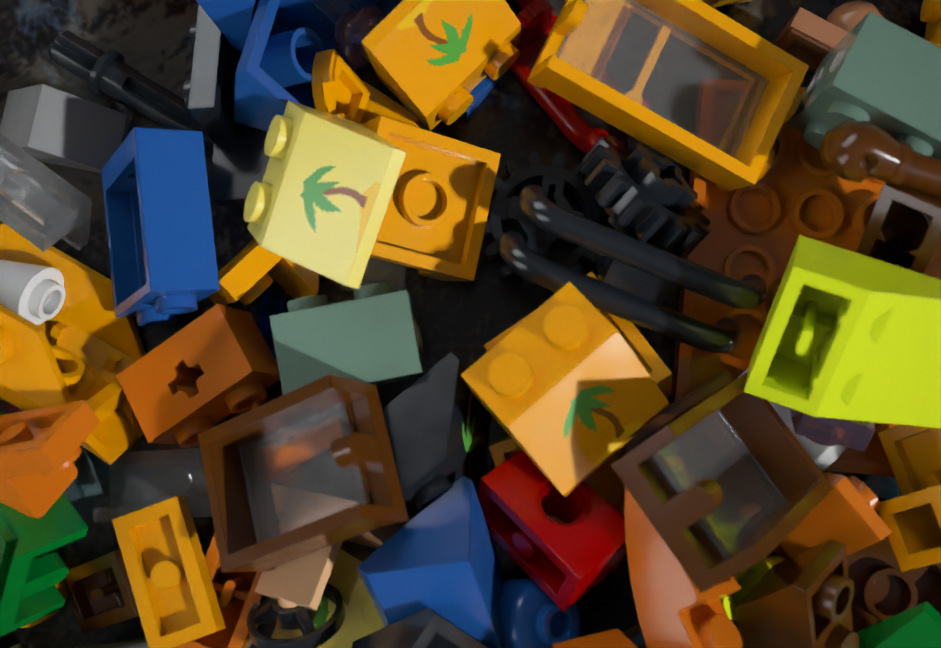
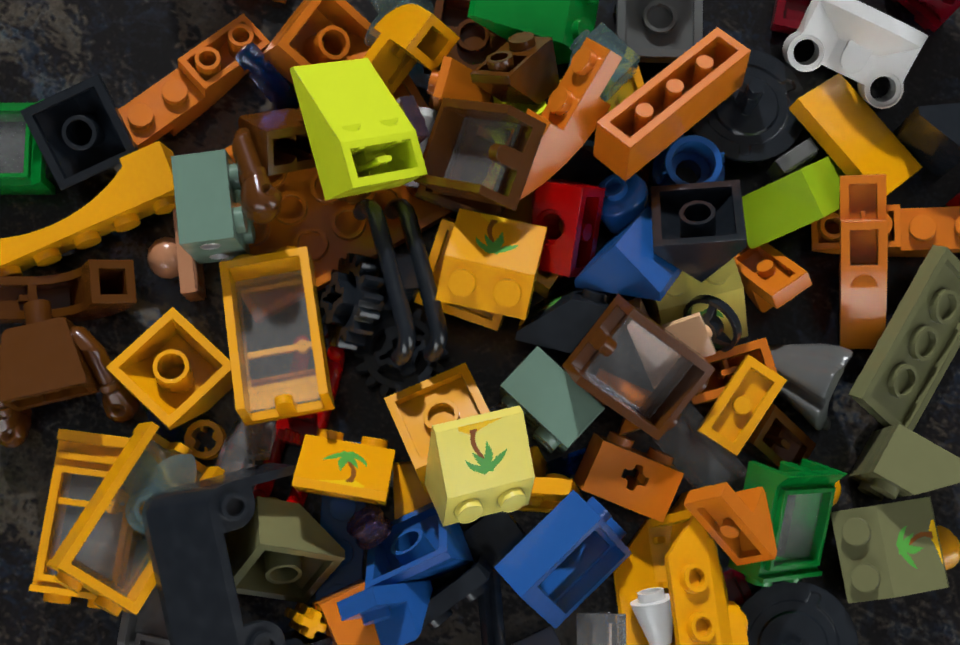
camera: 130 degrees left, 5 degrees down
(337, 87) = (413, 513): light orange tile -> none

